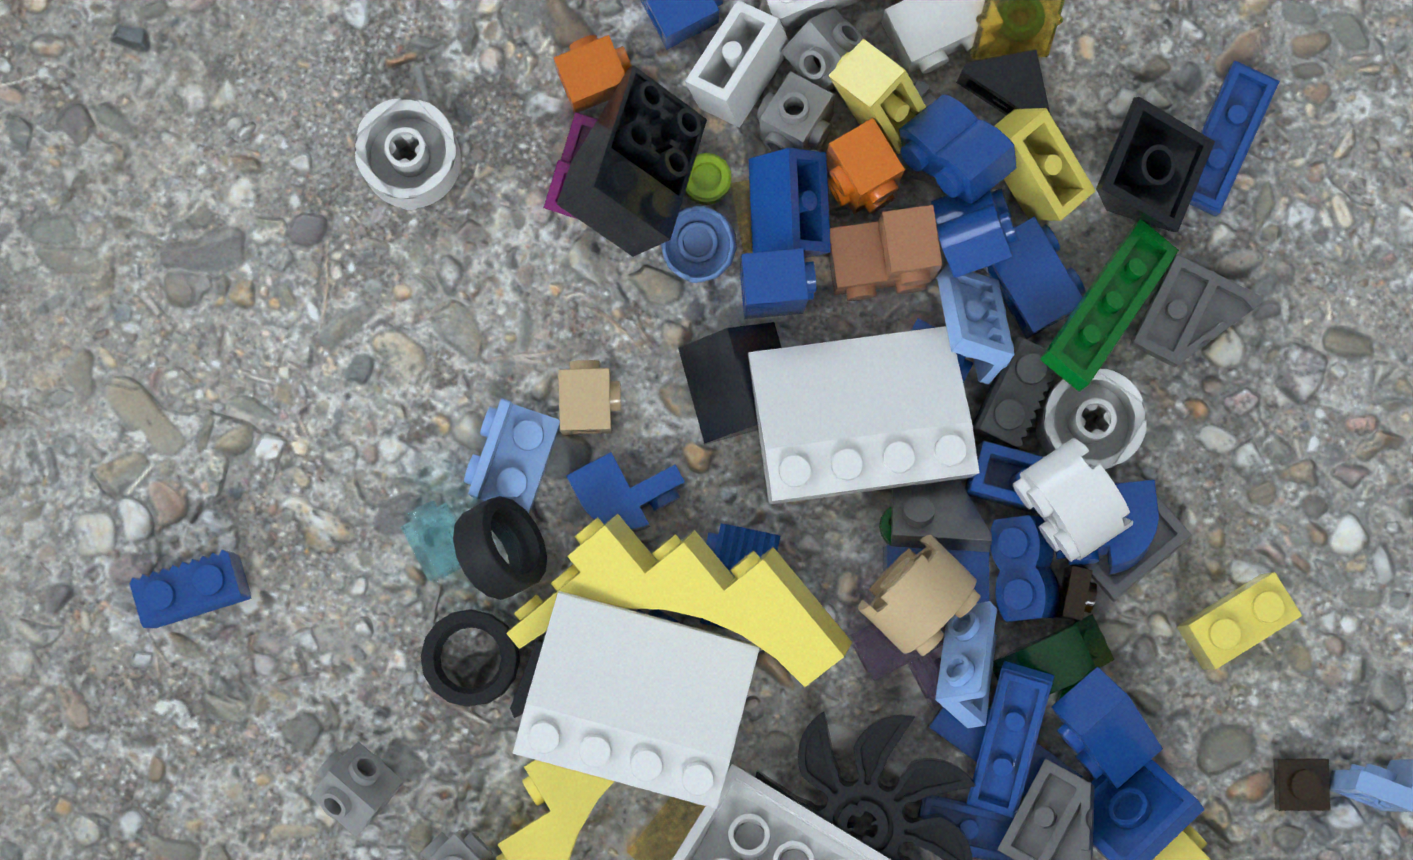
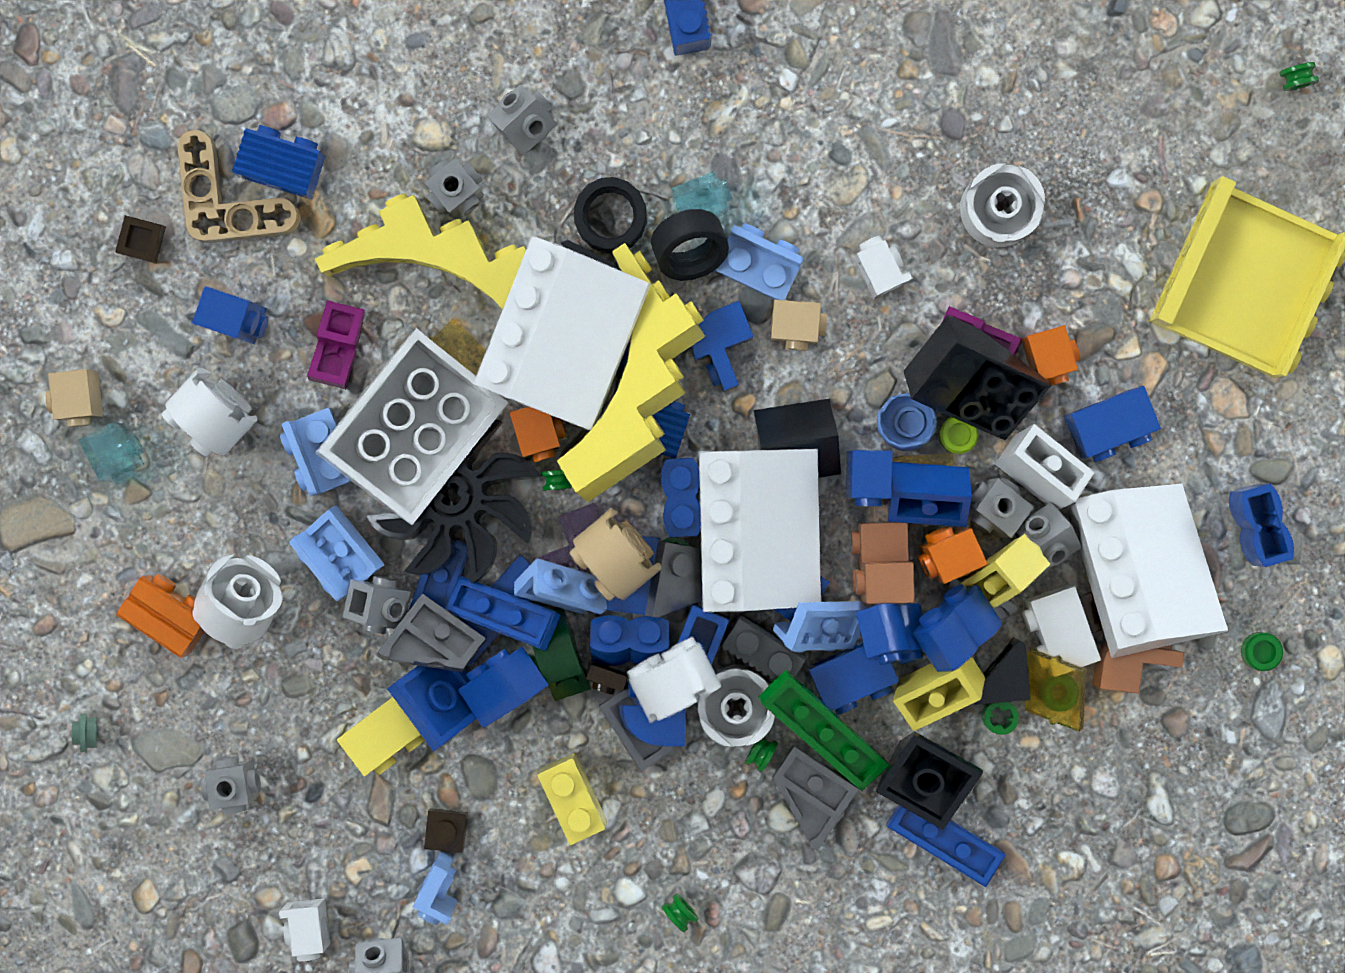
camera: 105 degrees right, 5 degrees up
(502, 299) = (880, 266): none -> white brick
(768, 721) = (537, 433): none -> orange brick
(826, 690) = (555, 480): none -> green bush
(844, 521) = (680, 484): none -> blue brick
(1075, 90) = (996, 727): none -> green bush
(1149, 382) = (761, 753): none -> green bush
(1366, 465) = (680, 912): none -> green bush

